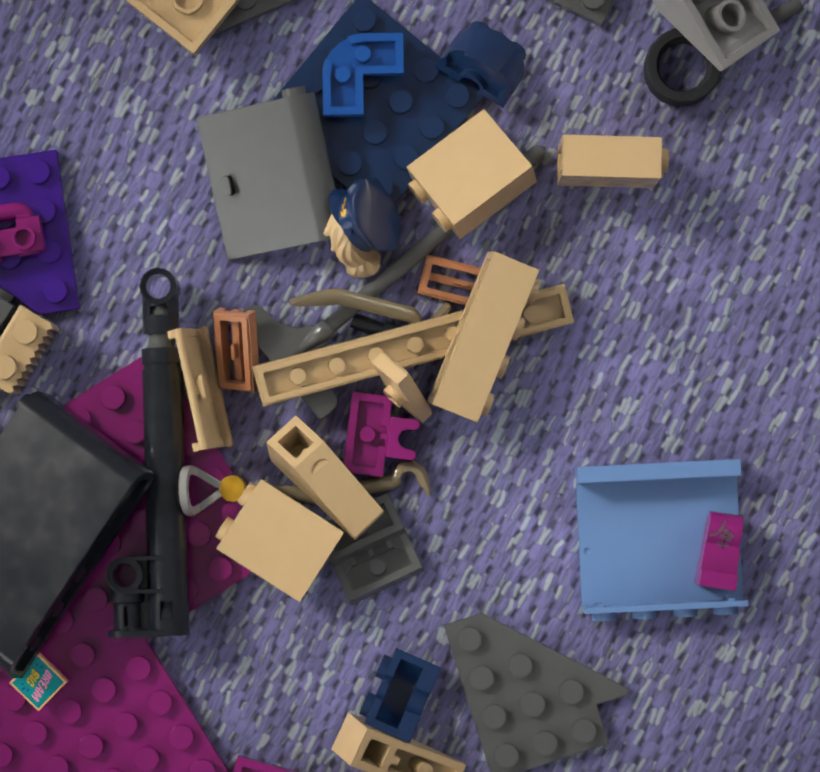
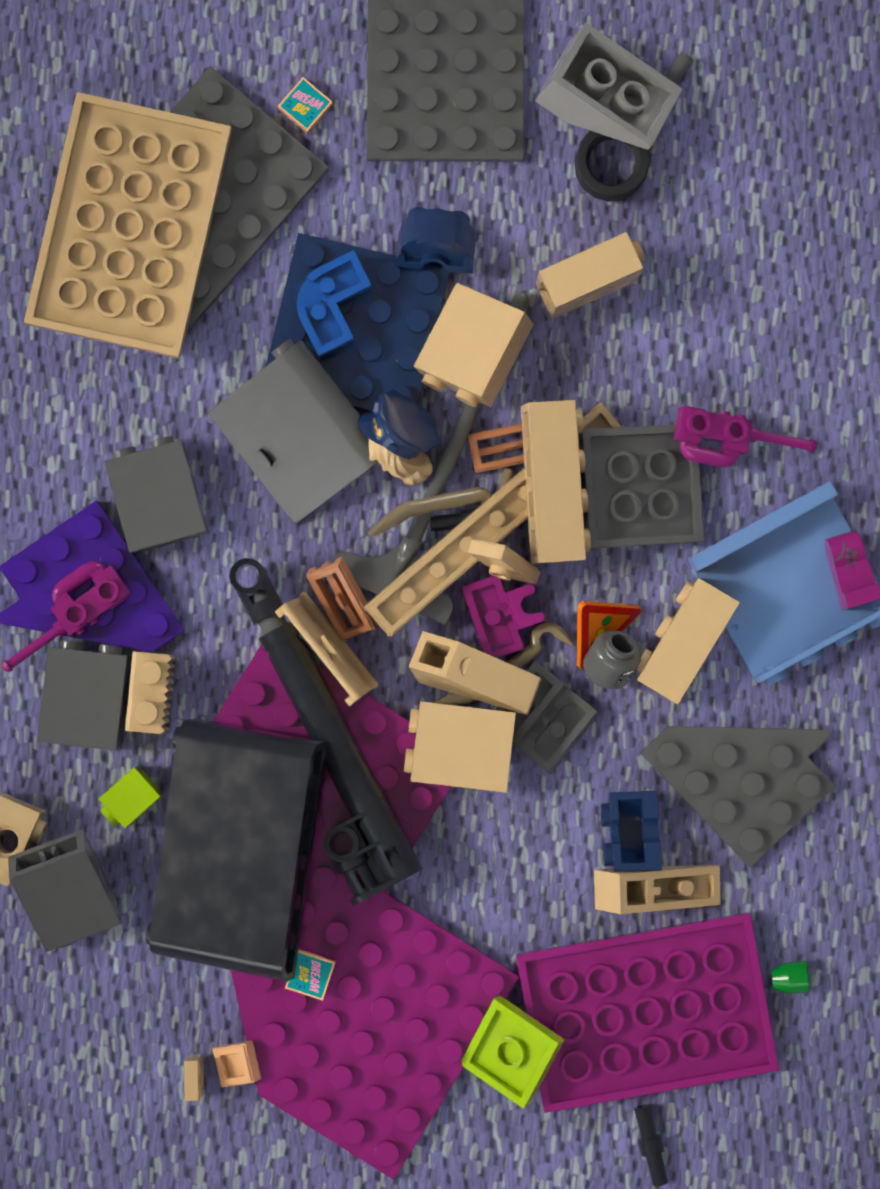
camera: 25 degrees left, 0 degrees up
(112, 171) = (156, 495): none -> dark grey brick
(229, 488) = (395, 723): light grey piece -> none
(458, 526) = (612, 659): none -> dark grey head
(463, 490) = (599, 617): none -> piece
(535, 541) = (686, 639): none -> tan brick
(564, 379) = (640, 488): none -> dark grey plate
(672, 370) = (731, 431): none -> magenta piece

